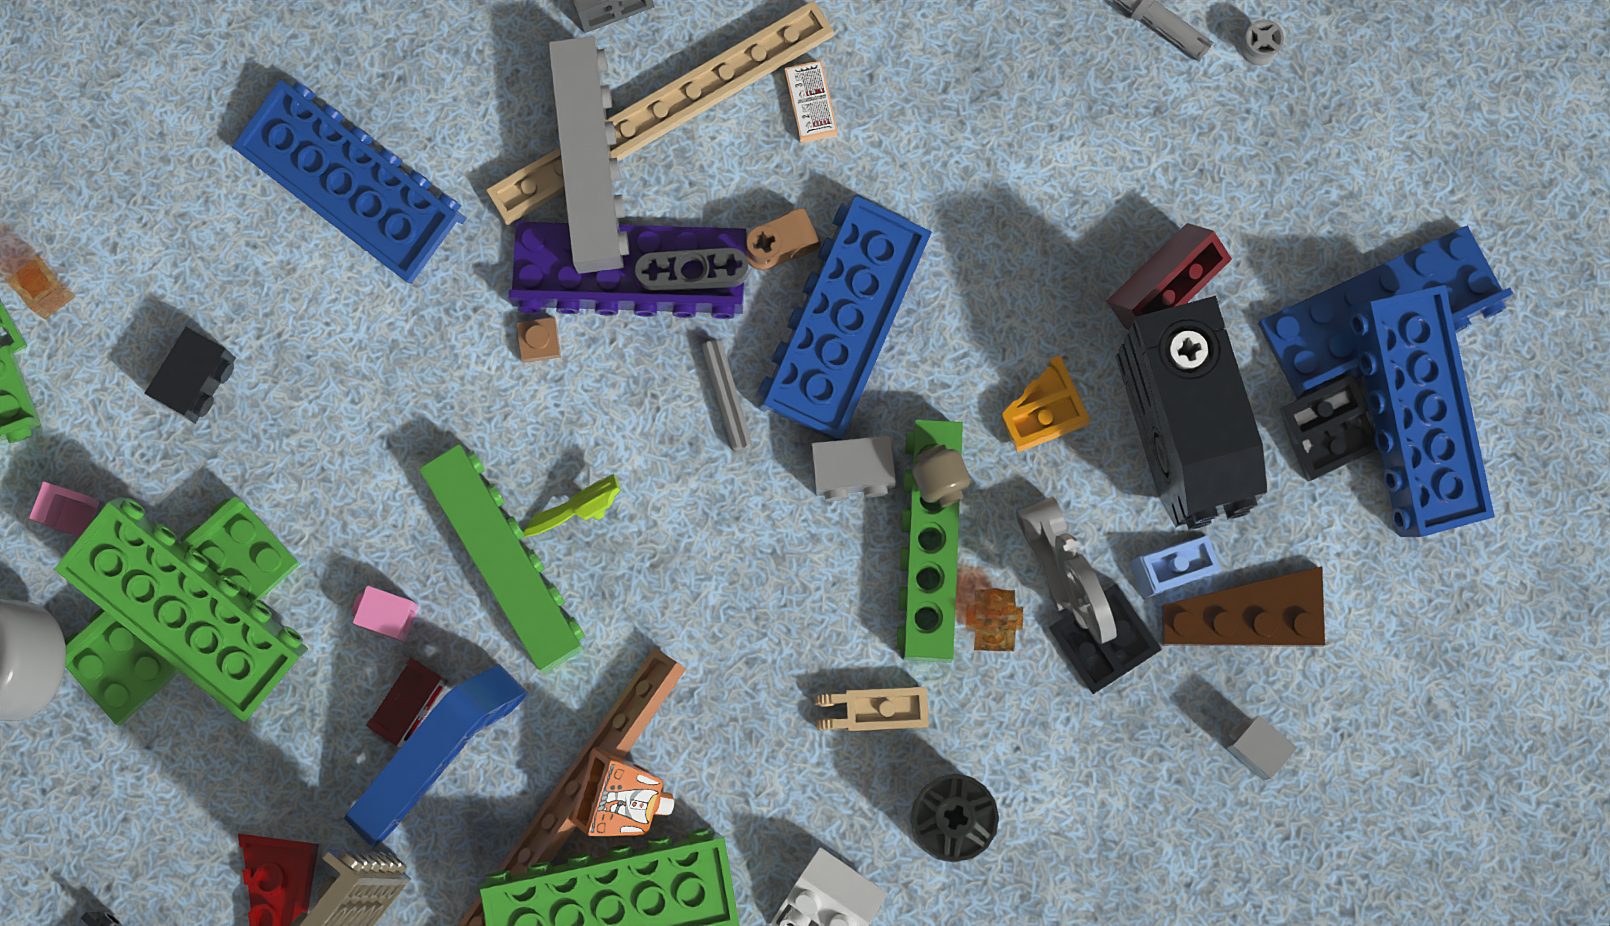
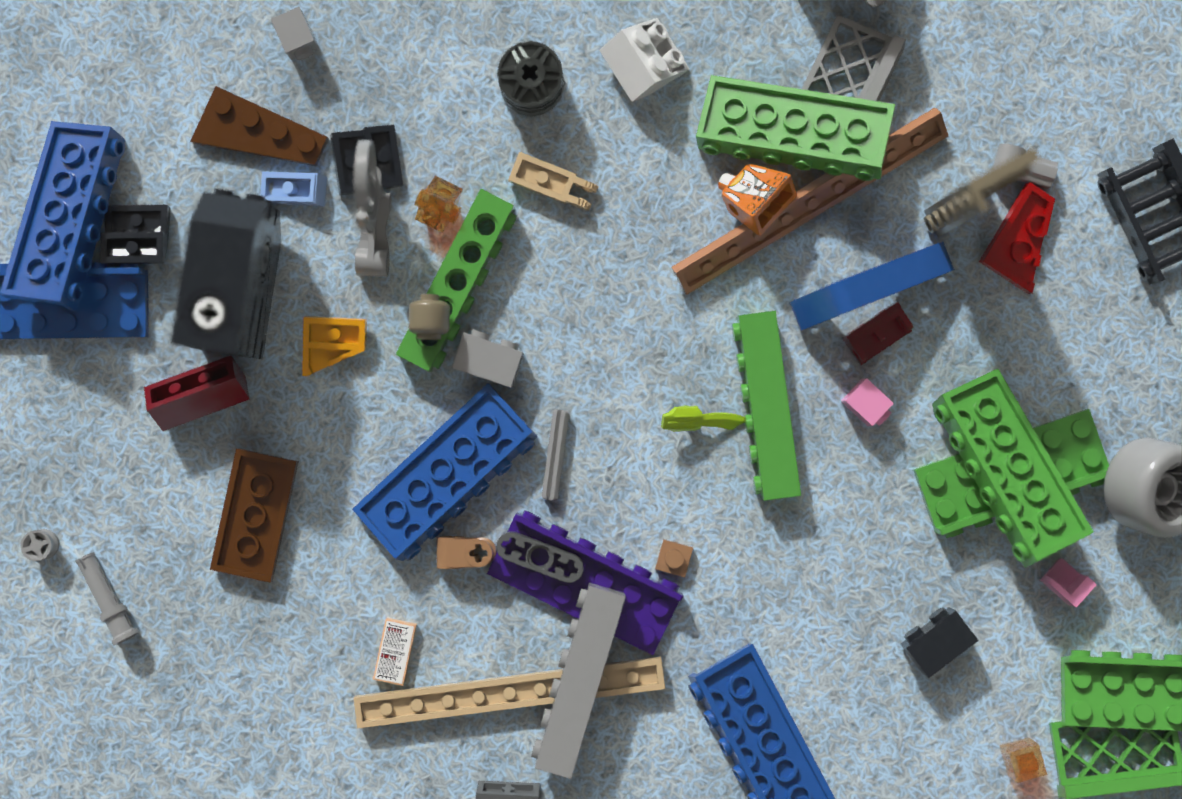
camera: 165 degrees left, 10 degrees up
(1039, 178) = (254, 515): none -> reddish brown plate

